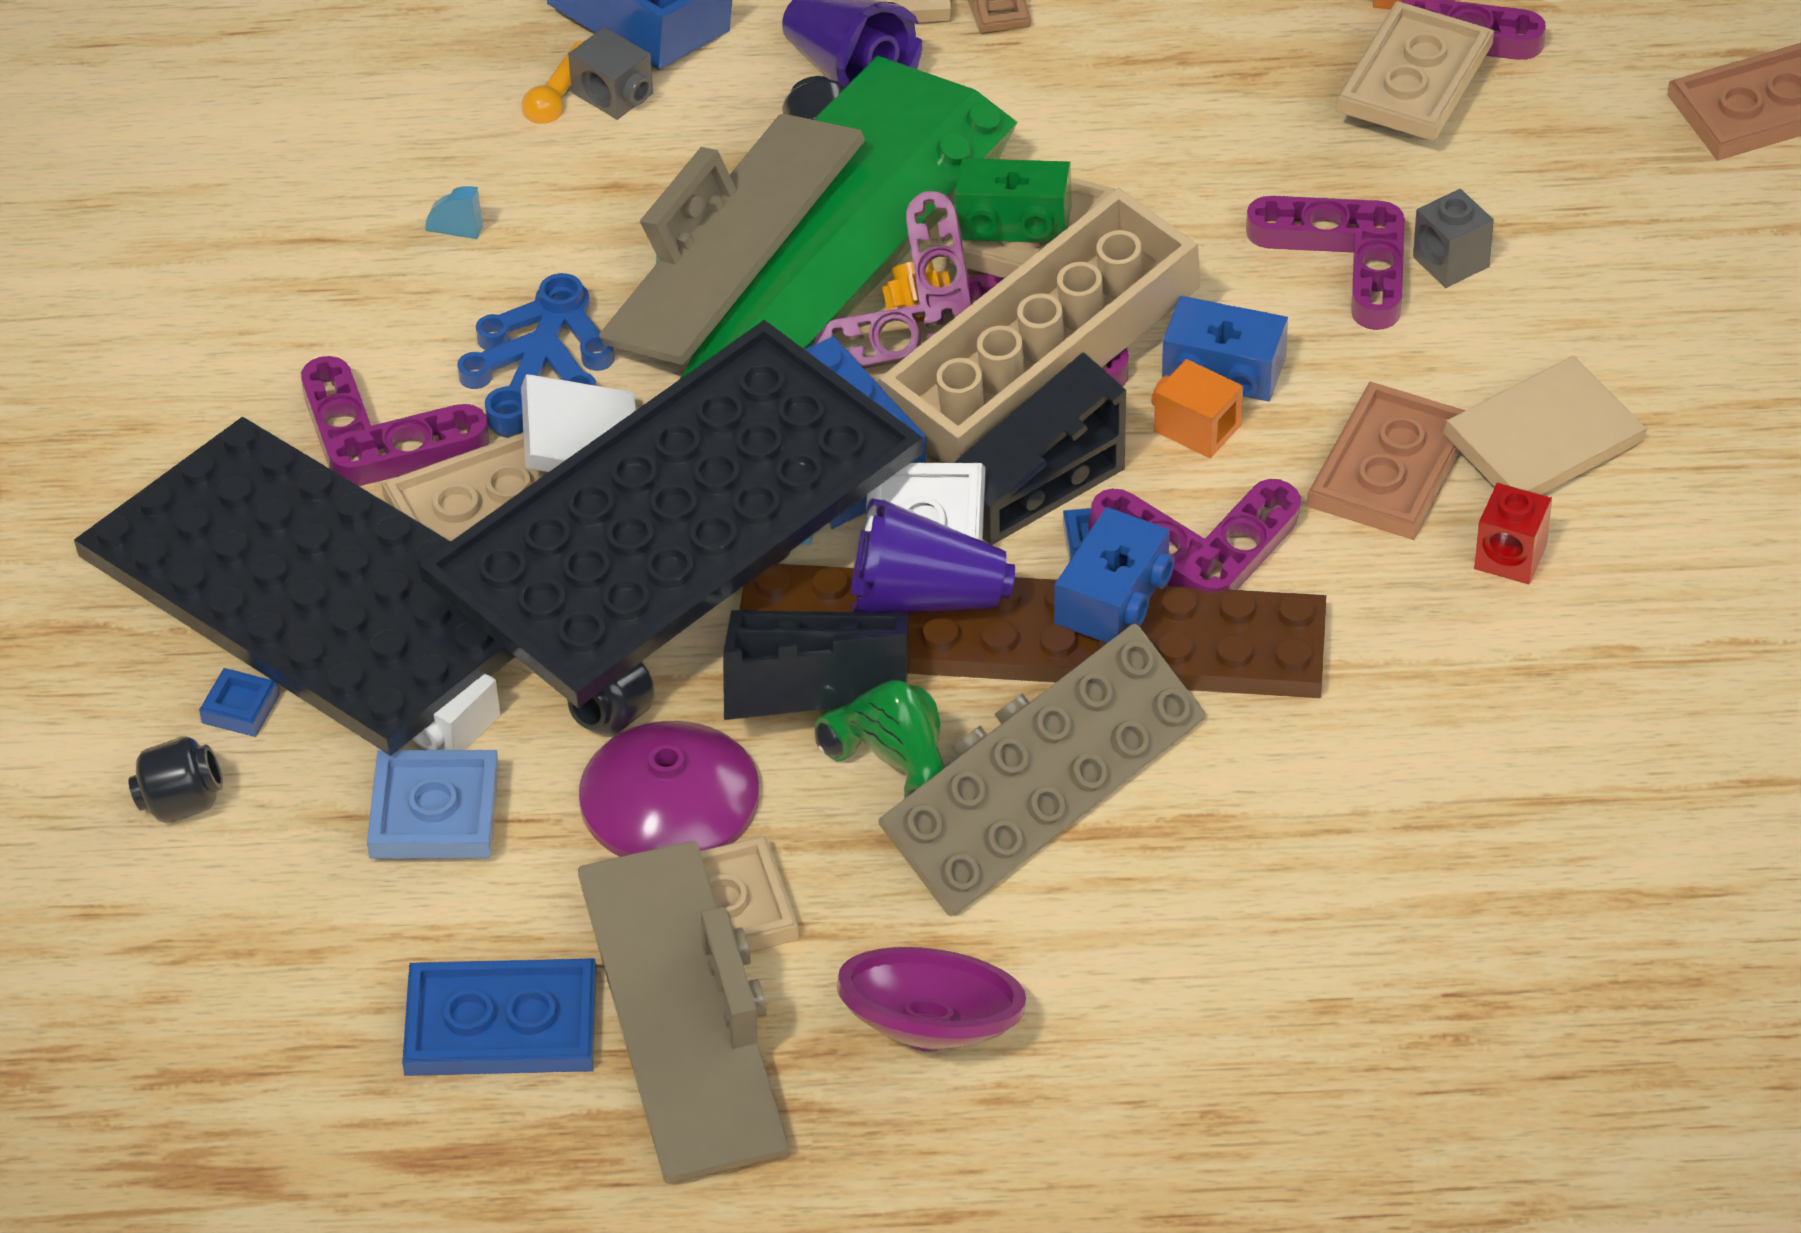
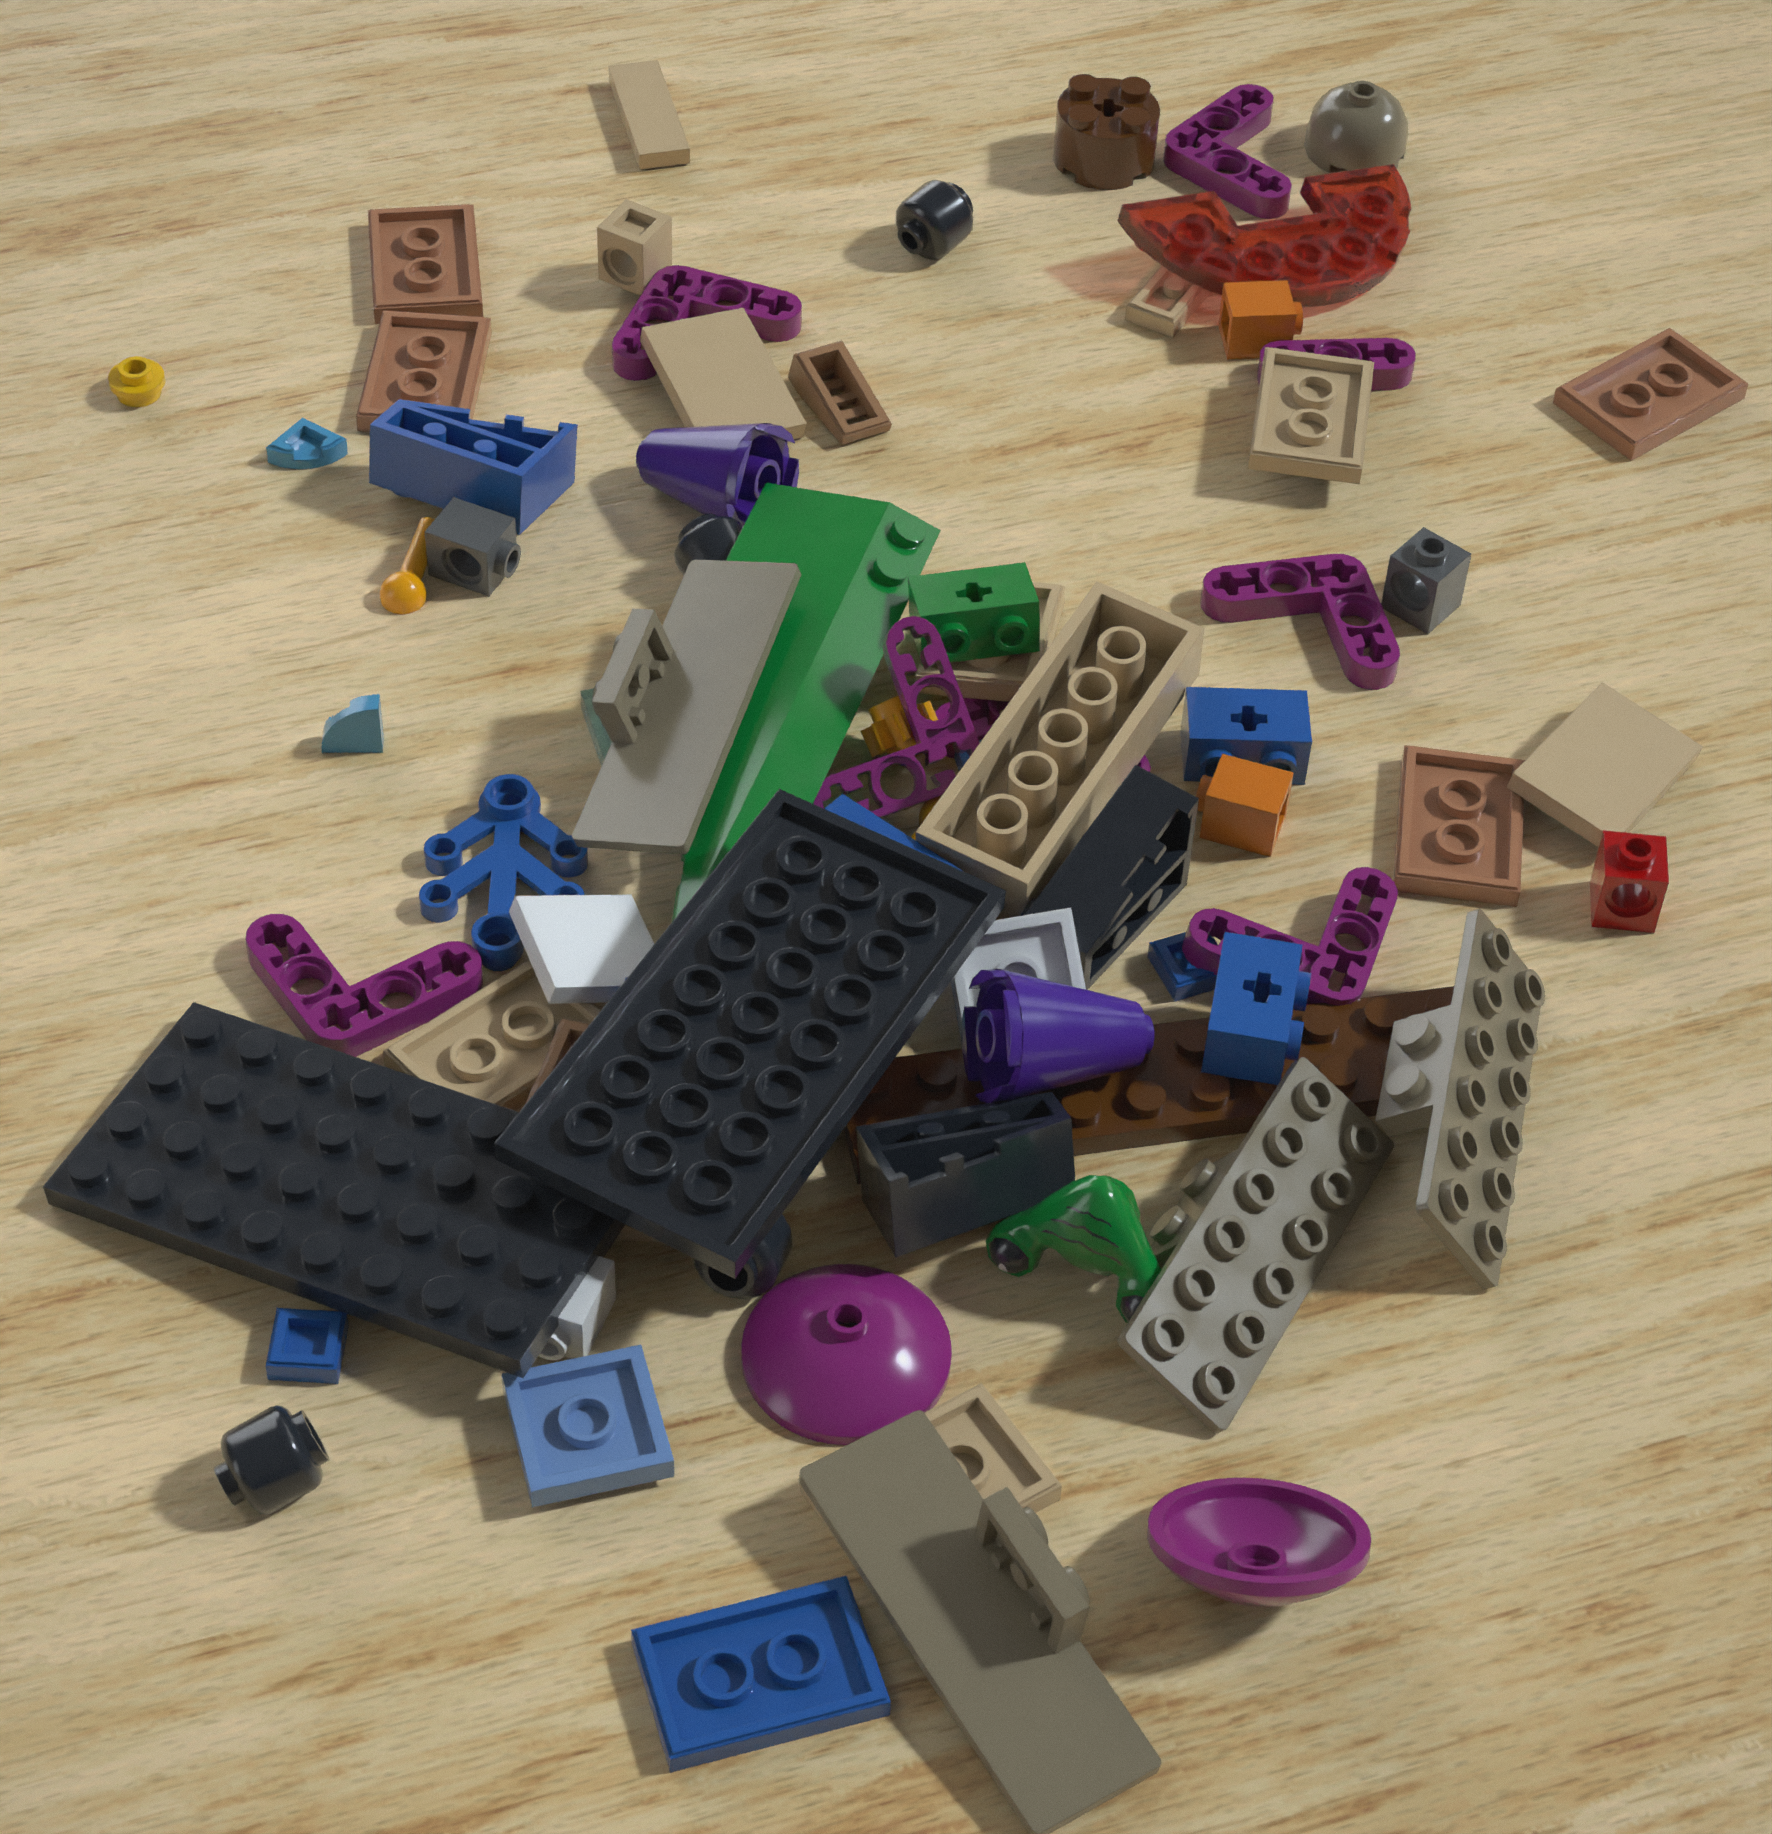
camera: 20 degrees left, 0 degrees up
(1277, 684) = (1469, 1081): none -> dark tan bracket

